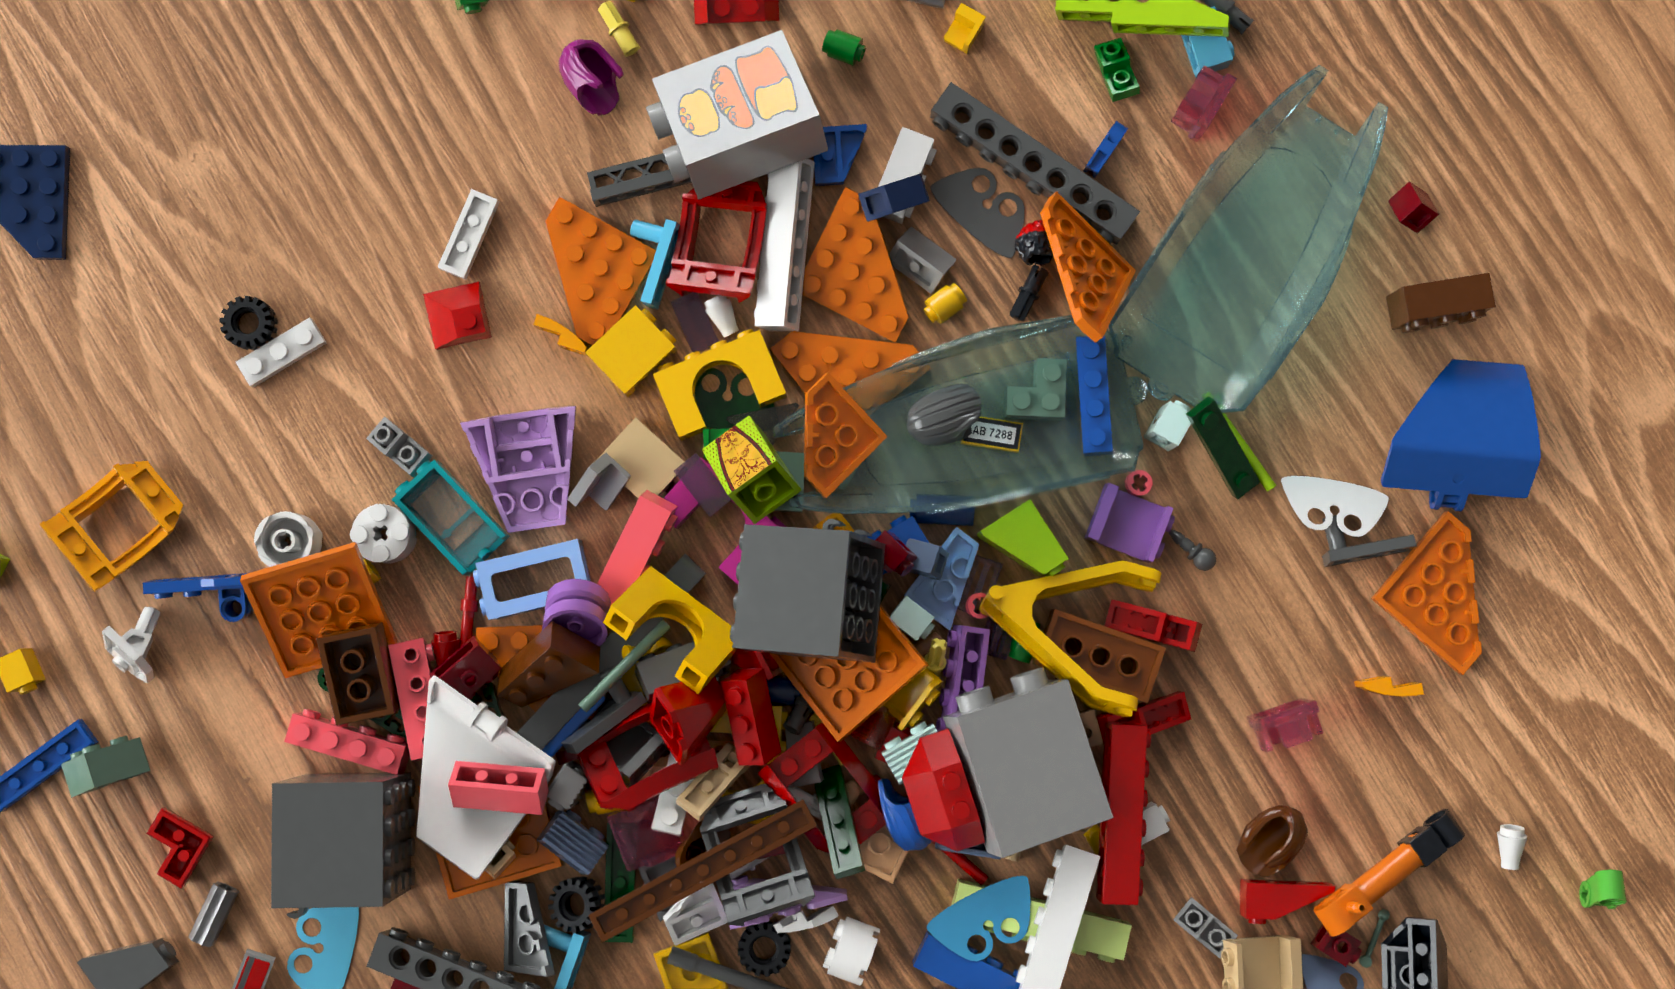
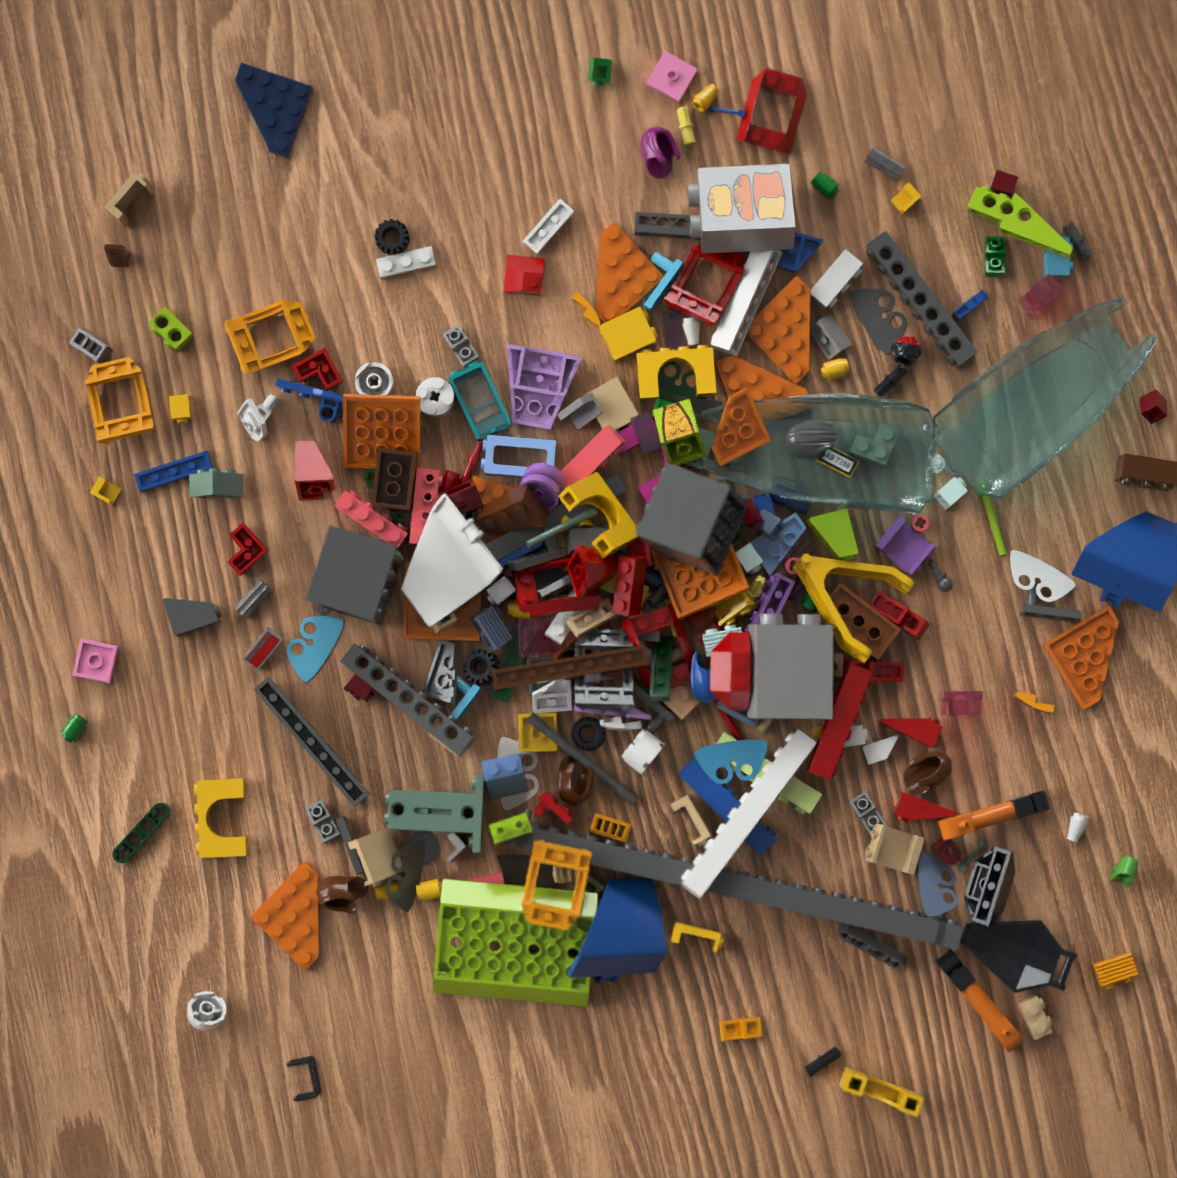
camera: 20 degrees right, 0 degrees up
(204, 541) = (320, 364): none -> red brick
(235, 702) = (311, 472): none -> slope
(498, 787) = (462, 575): coral brick -> none
(861, 882) = (663, 713): none -> dark grey piece
(893, 197) = (824, 292): dark blue slope -> none
(1088, 267) = (932, 375): orange plate -> none
(1094, 397) = (909, 458): blue brick -> none
(1192, 829) = (880, 750): none -> white slope
(1223, 447) = (979, 517): dark green plate -> none
(1238, 781) = (920, 729): none -> red slope

